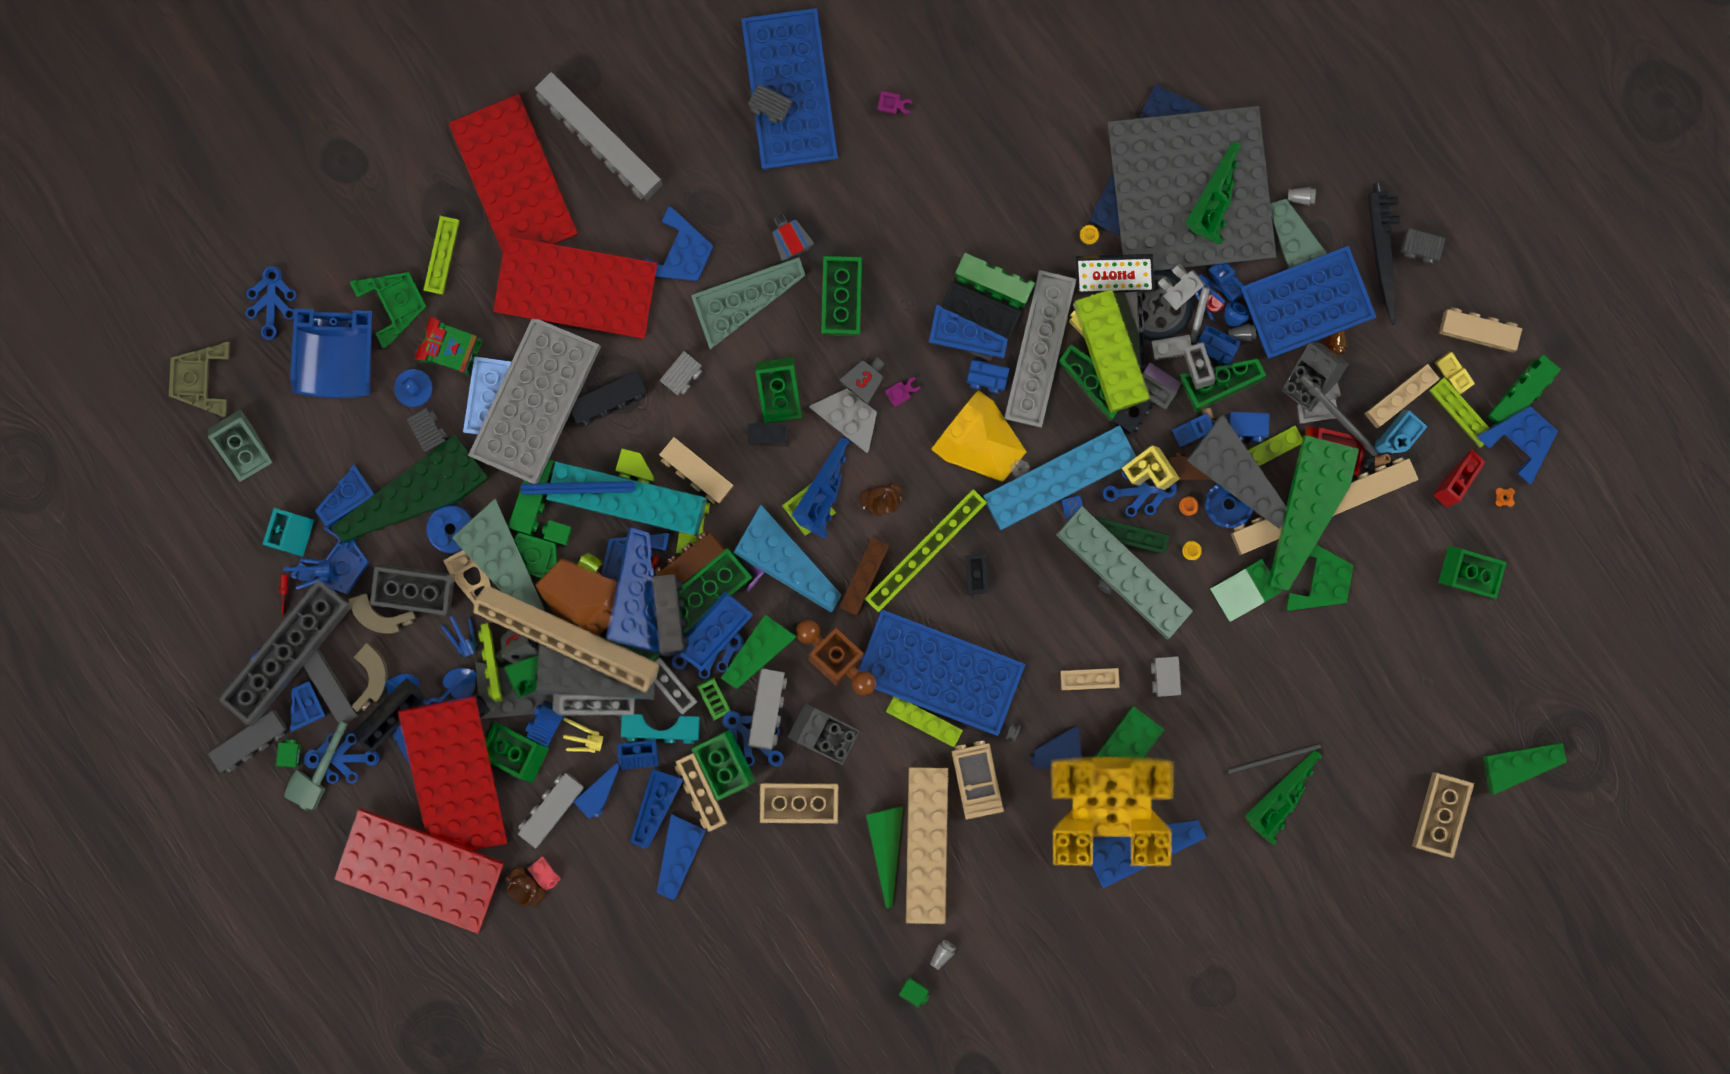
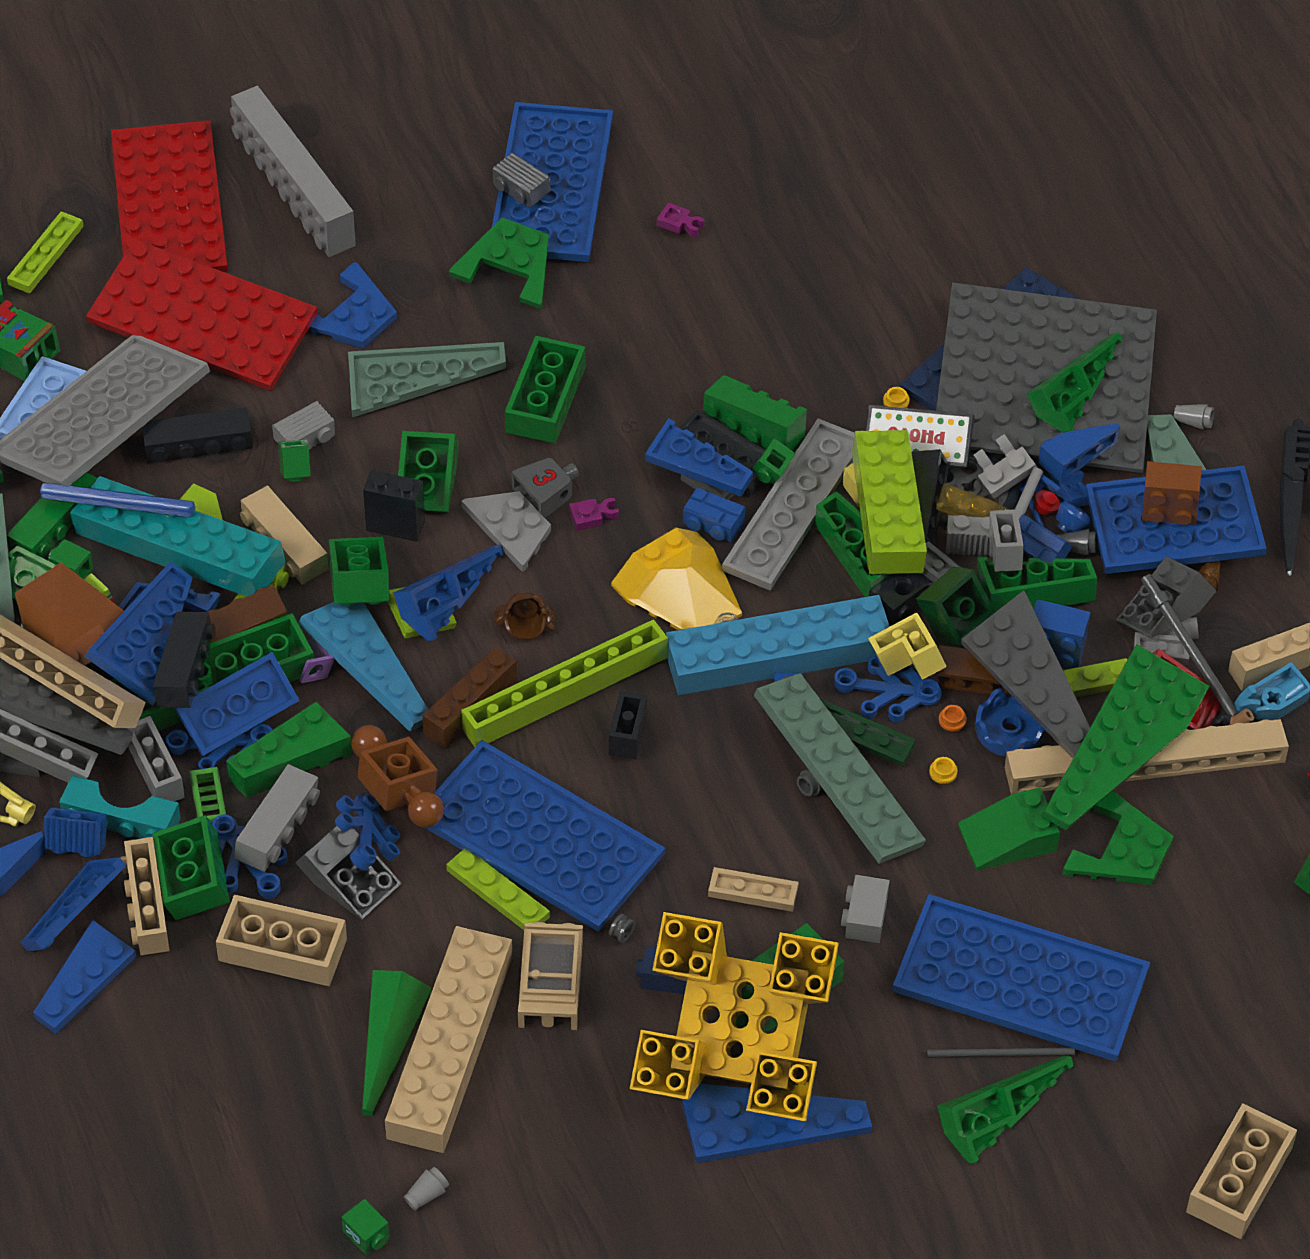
camera: 20 degrees right, 35 degrees down
(684, 406) = (294, 460): none -> green brick
(760, 497) = (358, 570): none -> green brick
(782, 169) = (511, 249): none -> green wing
(790, 238) = (501, 322): torso -> none
(822, 684) = (368, 810): none -> blue plant
(1024, 324) = (773, 462): none -> green brick
(1165, 327) = (960, 502): none -> clear yellow hinge
(1175, 426) = (955, 605): none -> dark green brick
(1224, 266) = (1075, 449): none -> blue slope
(1276, 701) = (1021, 977): none -> blue plate
(1306, 296) = (1171, 493): none -> dark orange brick

